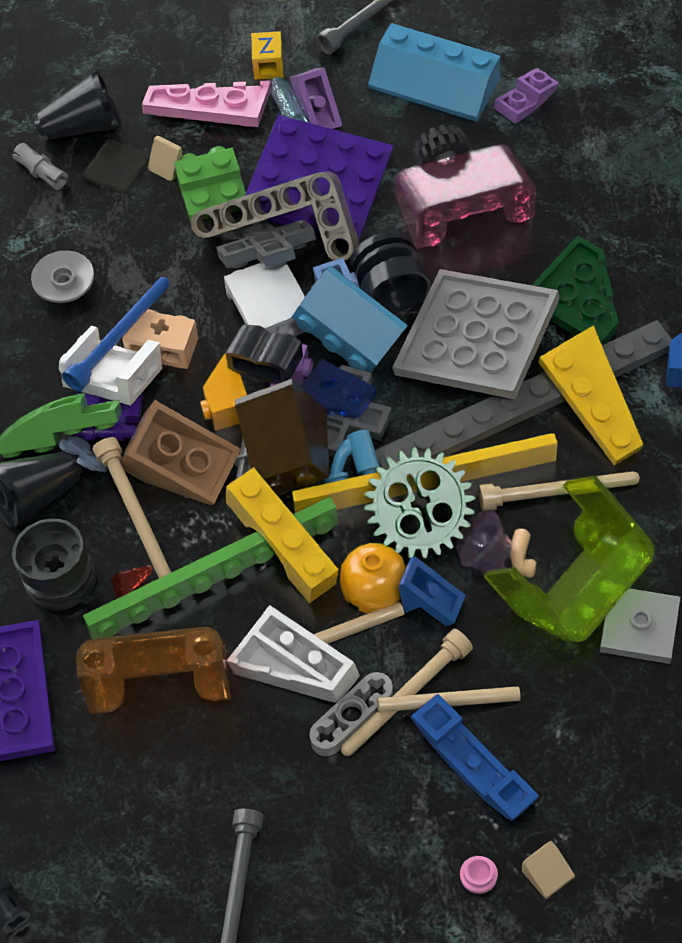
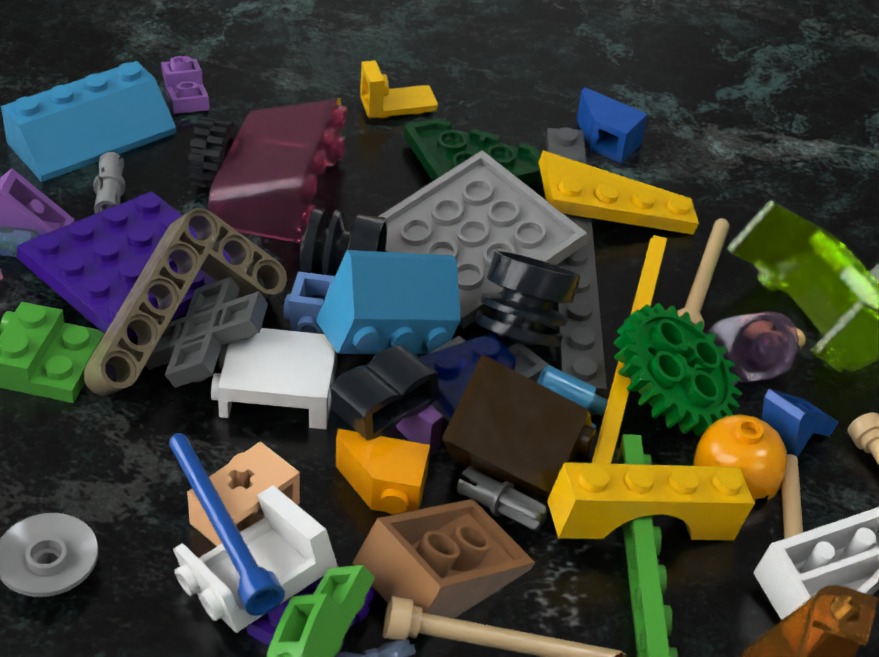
camera: 70 degrees left, 15 degrees down
(384, 120) = (109, 182): none -> light grey pin
(414, 388) = (527, 299): none -> black wheel
(609, 214) = (385, 102): none -> yellow bracket

